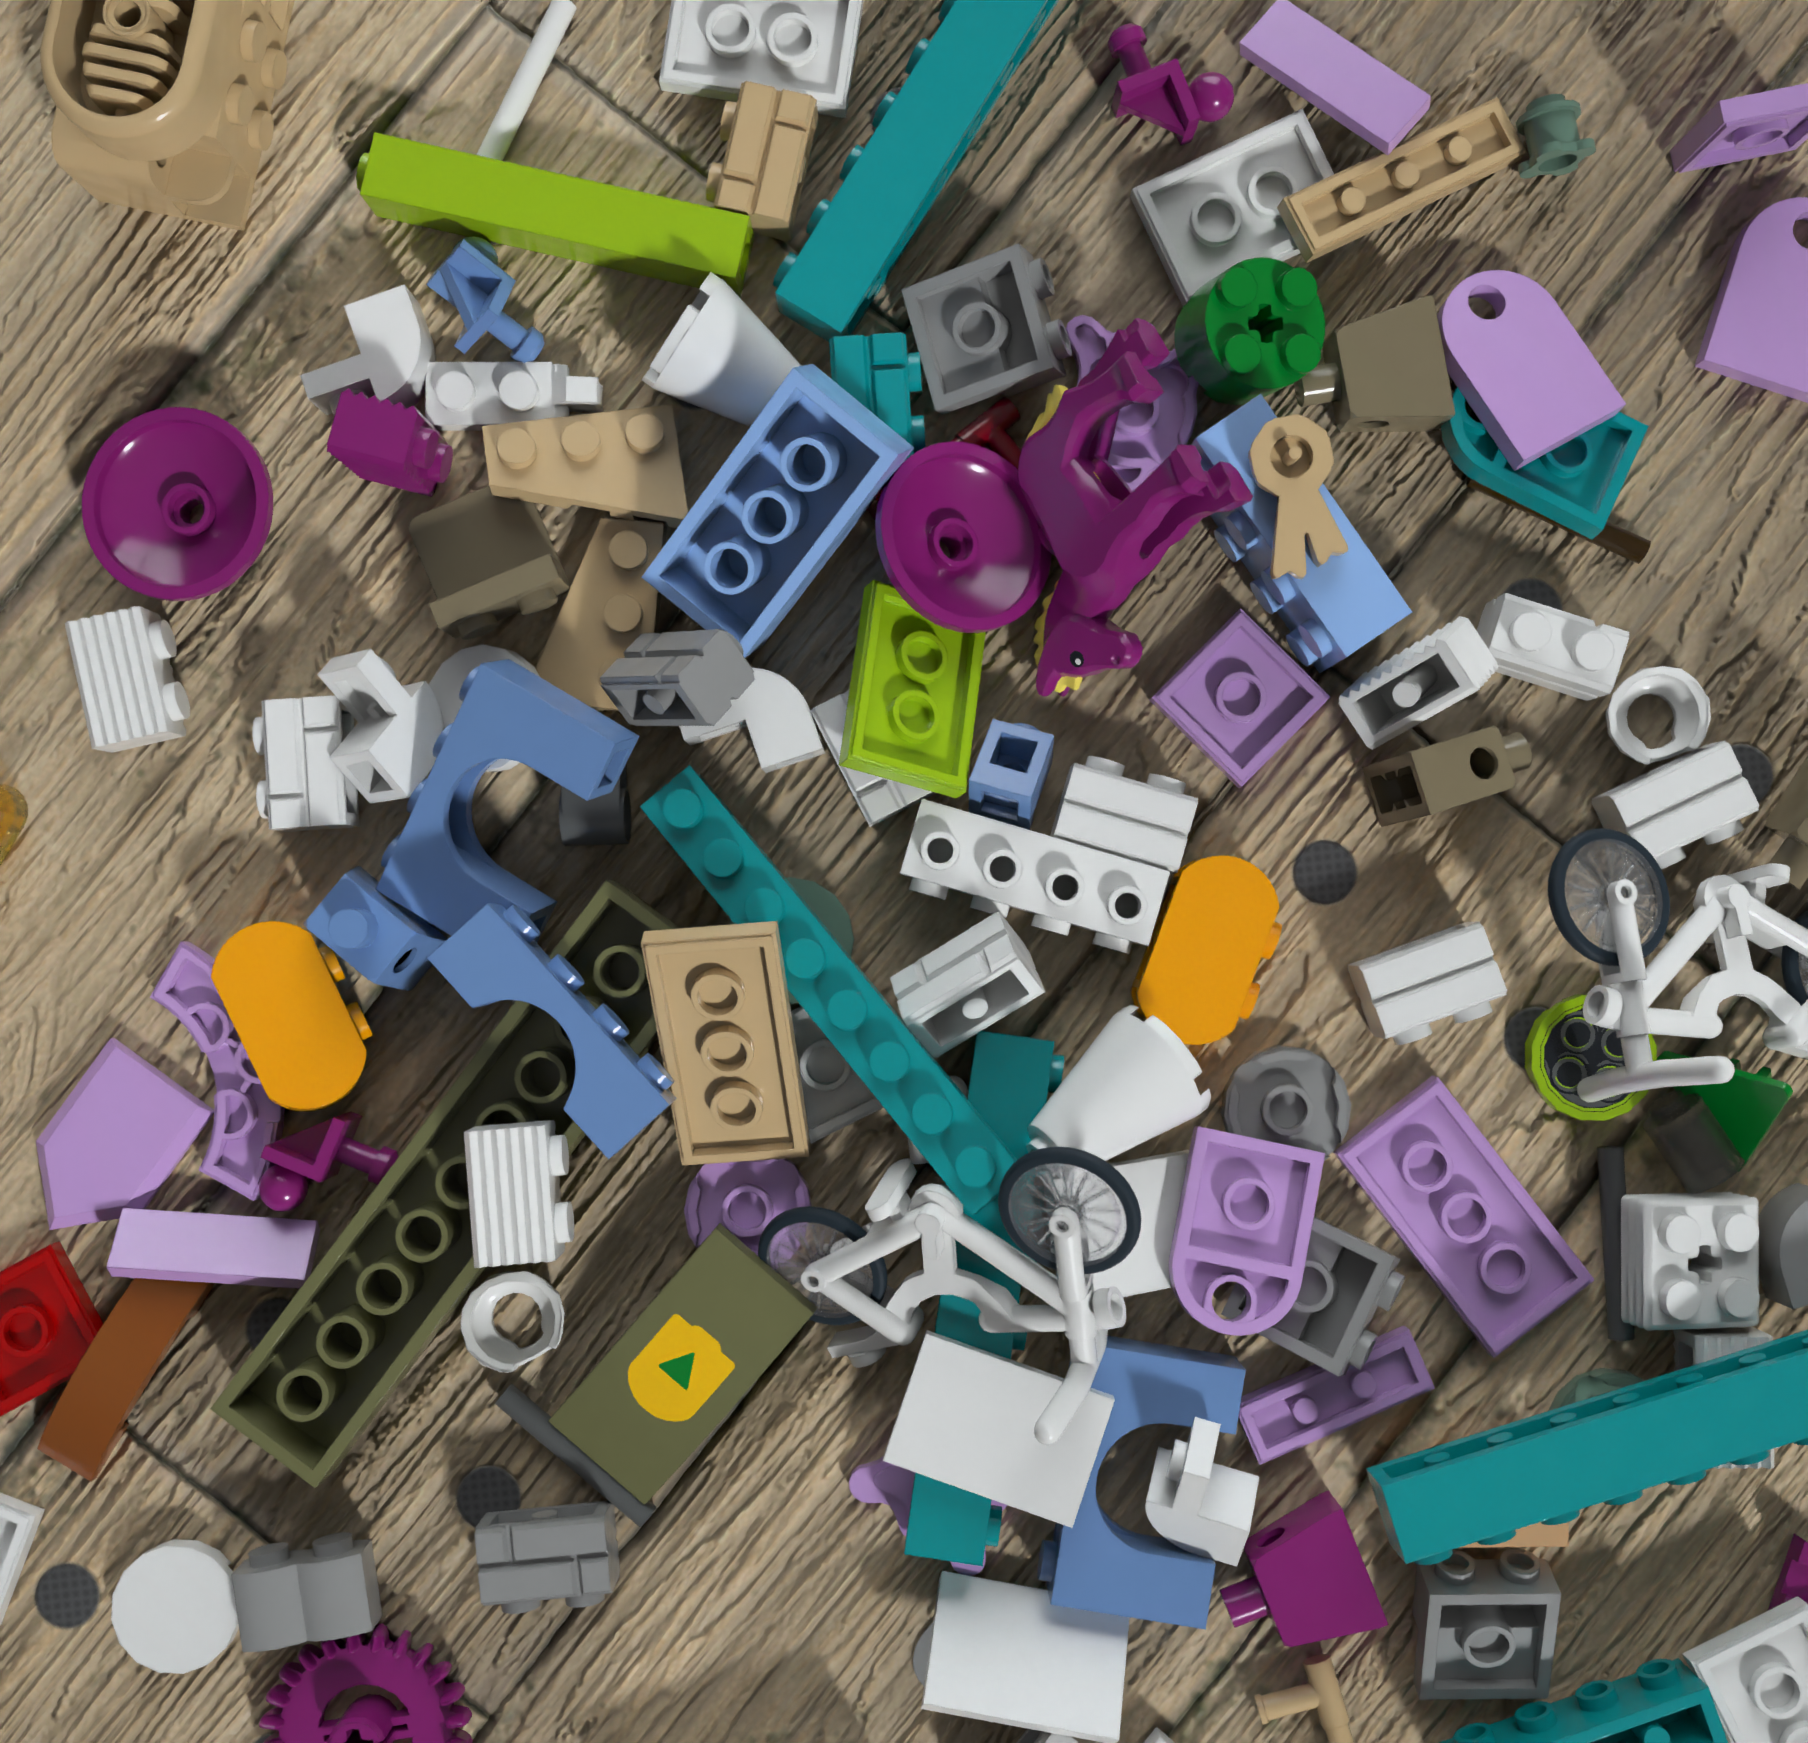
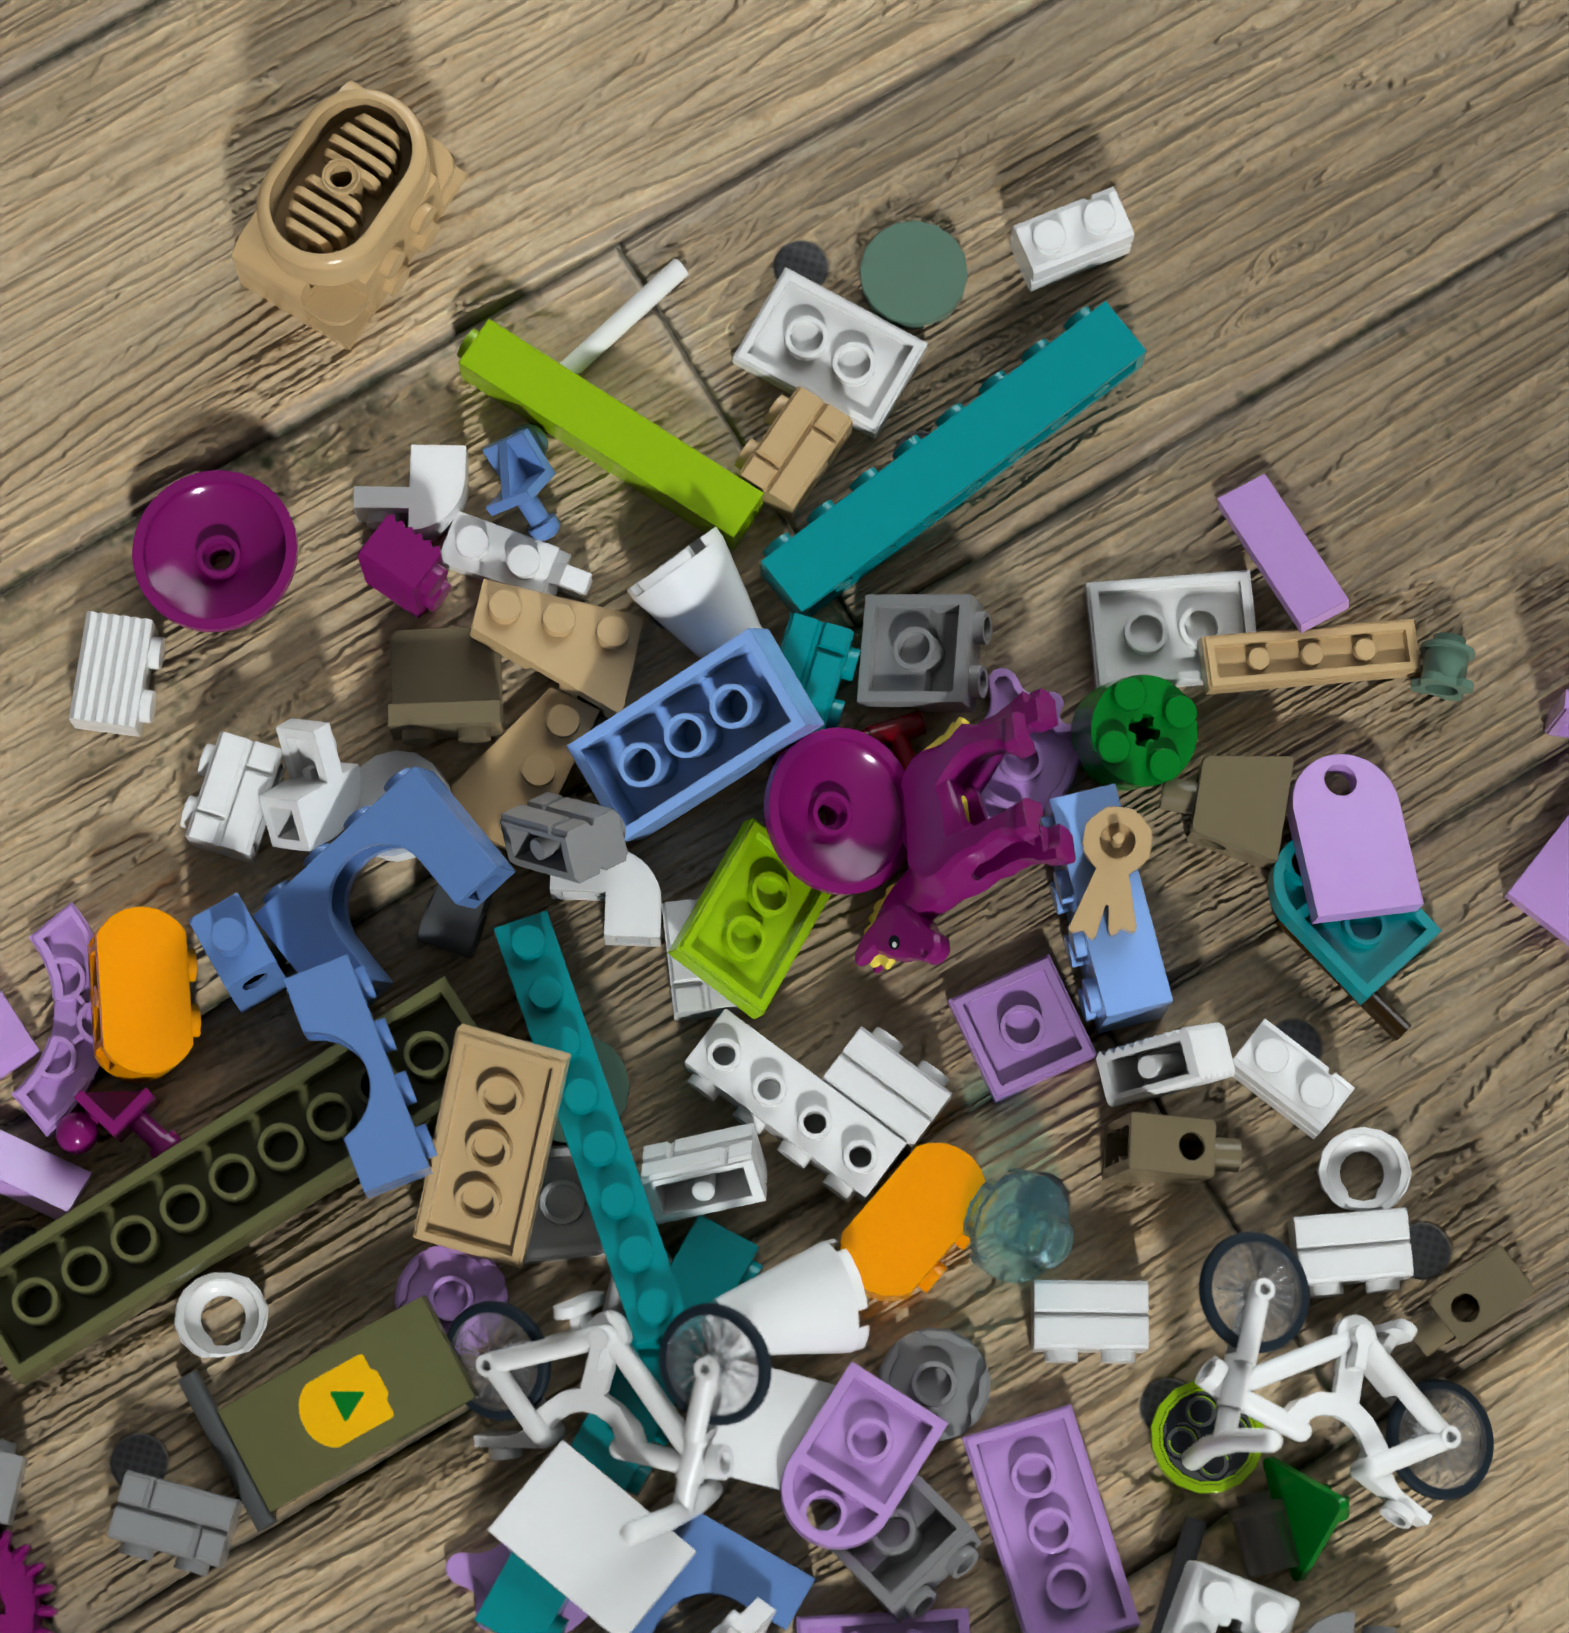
camera: 15 degrees right, 10 degrees down
(517, 1193) = (278, 1195): white brick -> none
(1010, 773) = (807, 1016): medium blue brick -> none
(1162, 91) = (1135, 515): magenta piece -> none
(1323, 914) = (1018, 1226): none -> clear light blue tile

